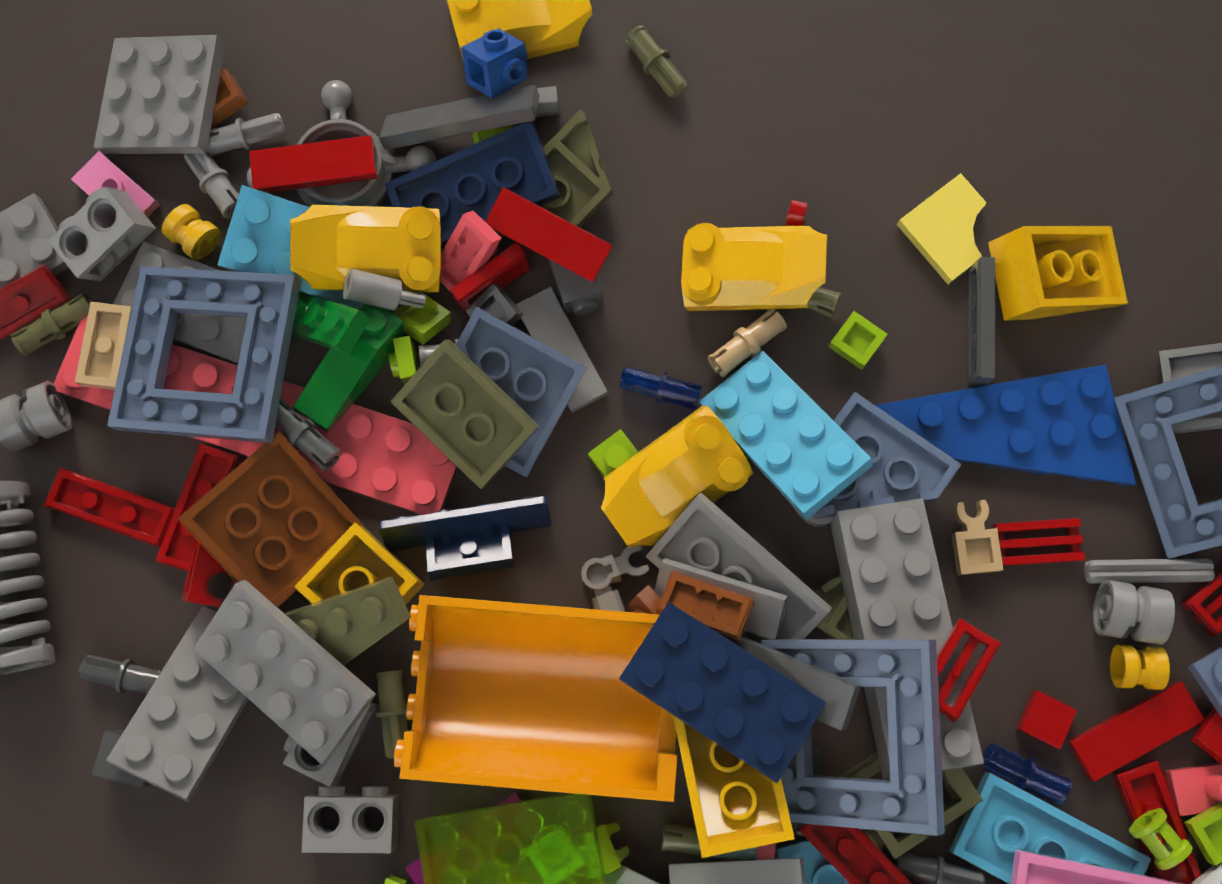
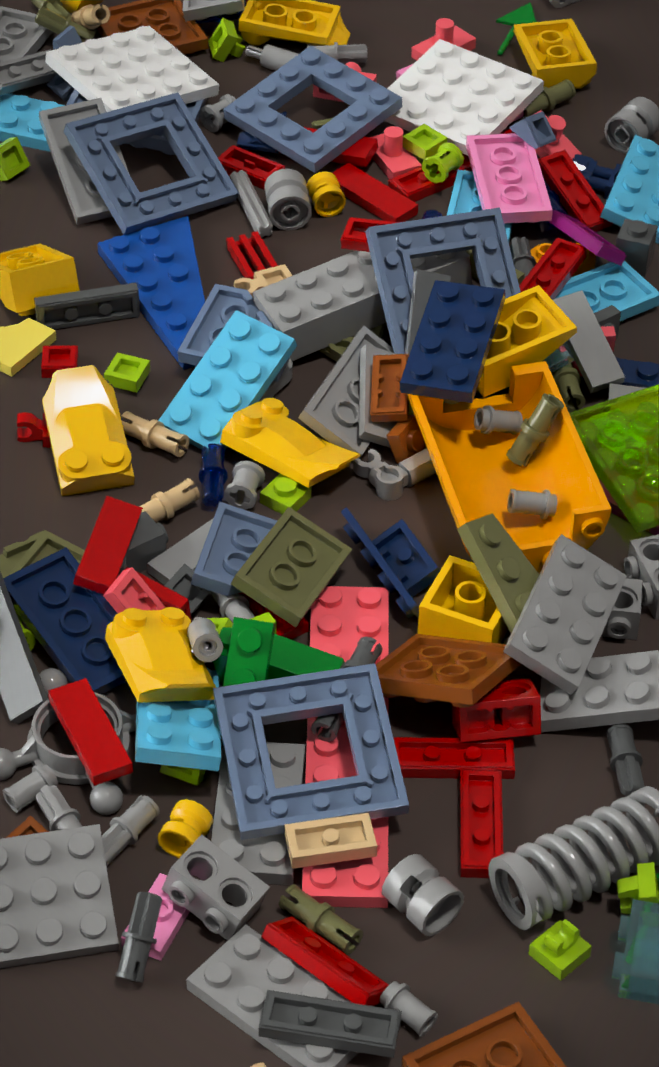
camera: 110 degrees left, 35 degrees down
(74, 157) = (139, 937): none -> dark grey axle
(294, 113) = (27, 788): none -> light grey pin
(489, 711) = (532, 503): none -> light grey pin
(582, 752) = (535, 429): none -> olive pin
(630, 324) = (165, 504): none -> tan pin
(634, 415) = (246, 479): none -> light grey bush
(635, 714) = (489, 420): none -> light grey pin
(904, 277) = (58, 358): none -> red tile

